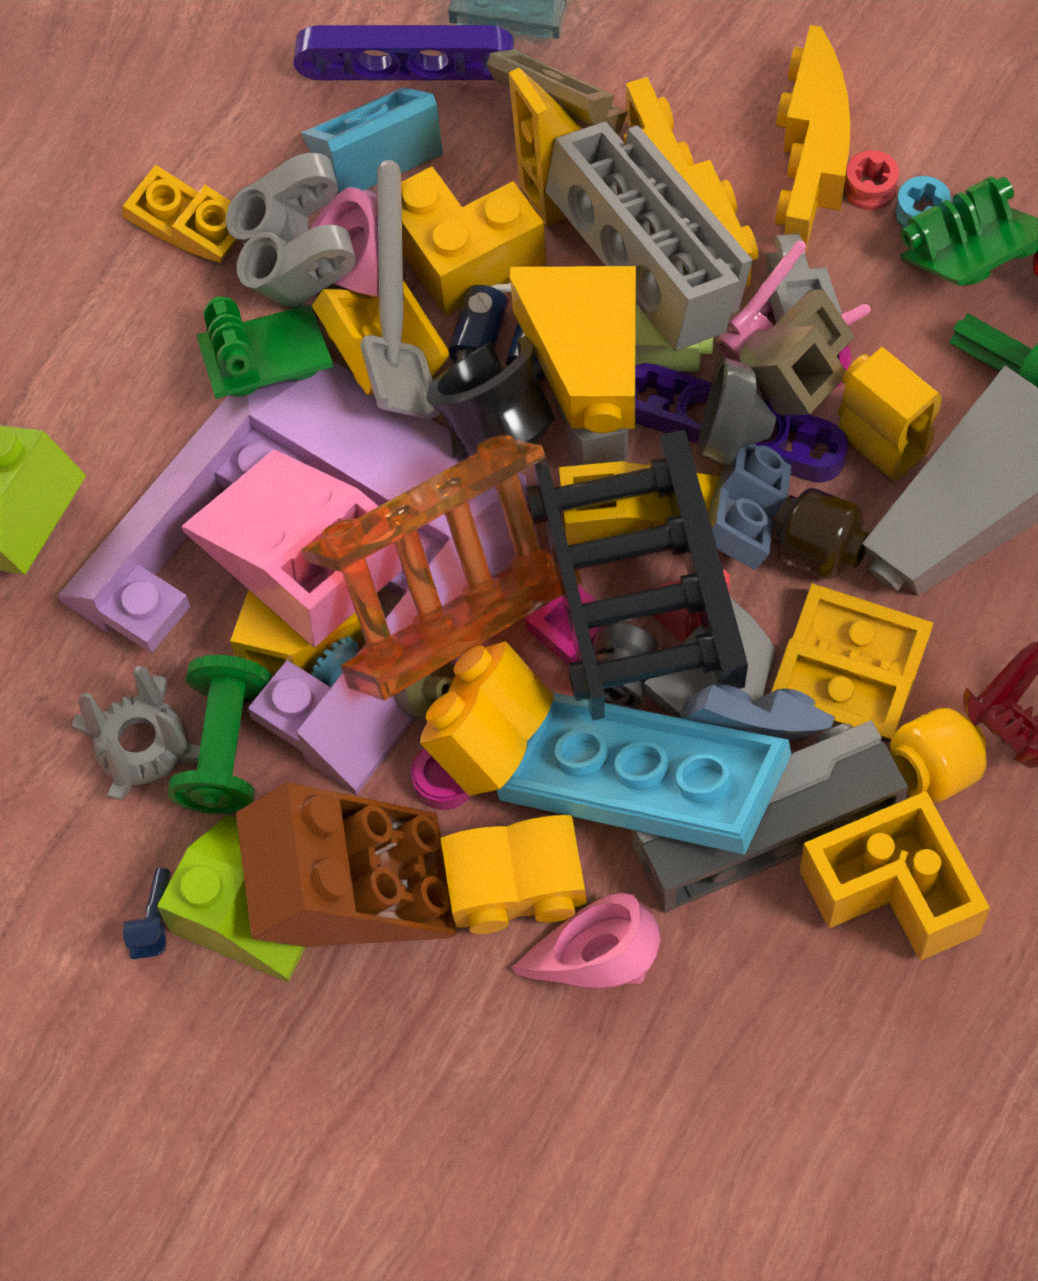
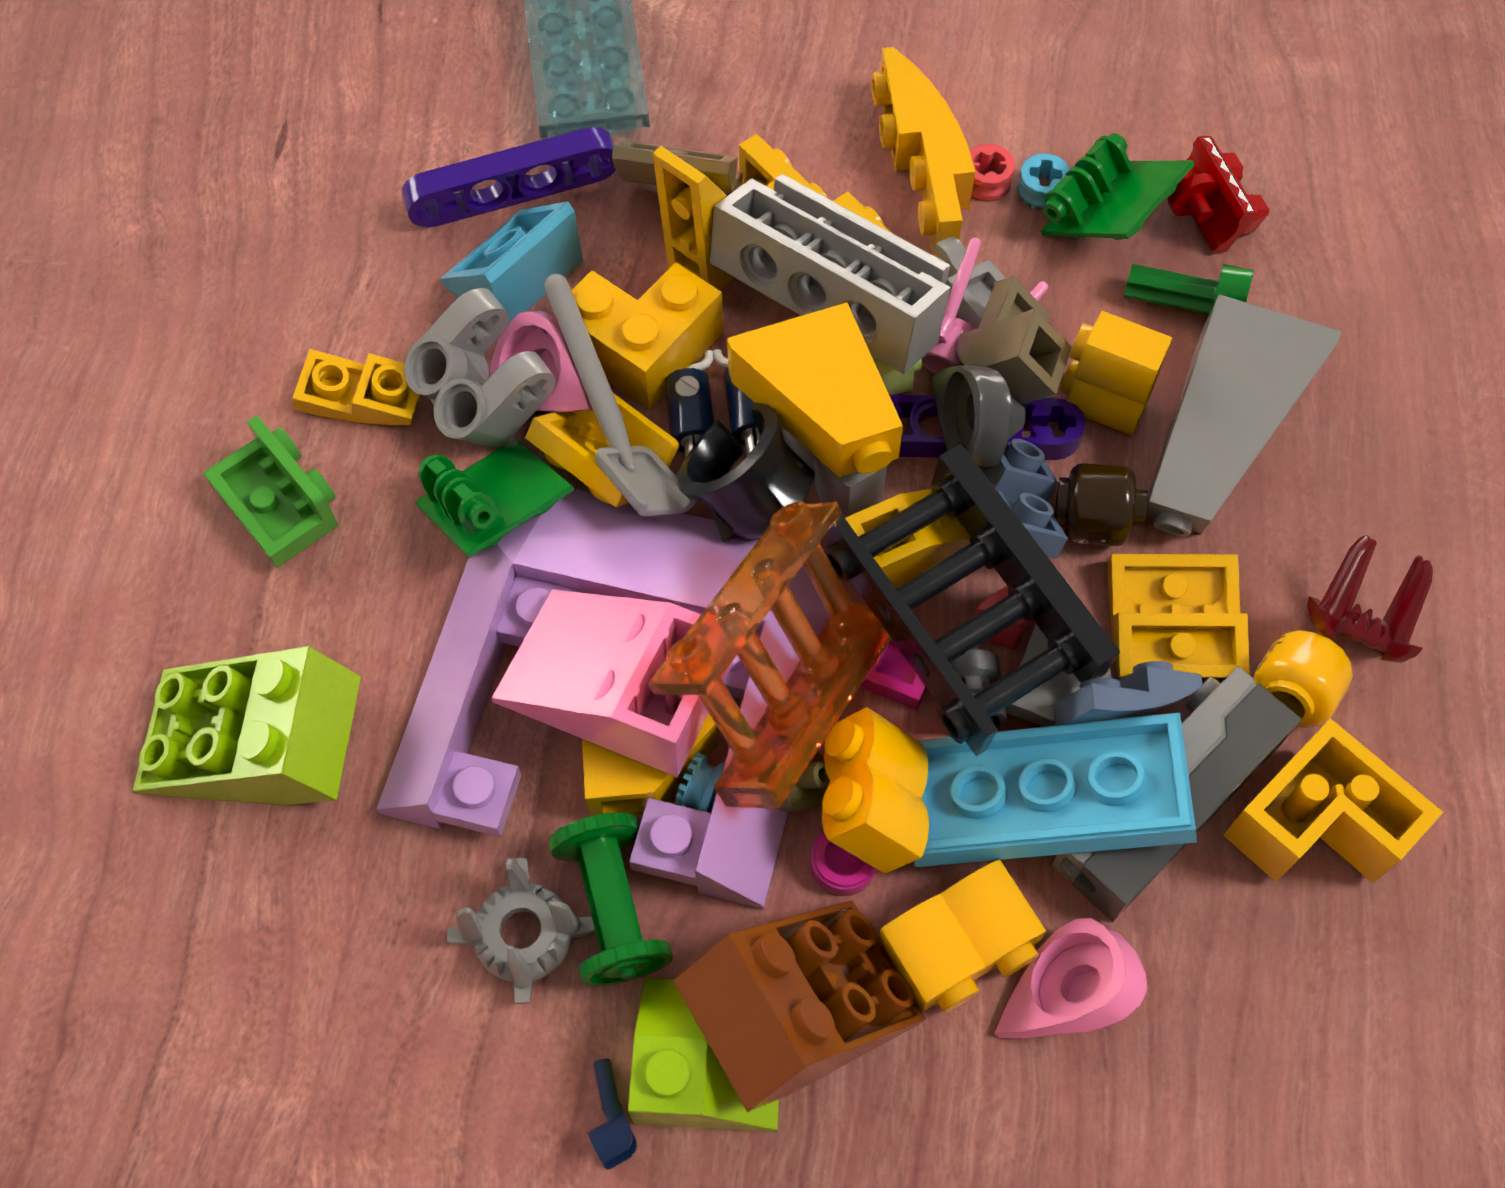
camera: 25 degrees left, 0 degrees up
(70, 291) = (273, 494): none -> bright green bracket

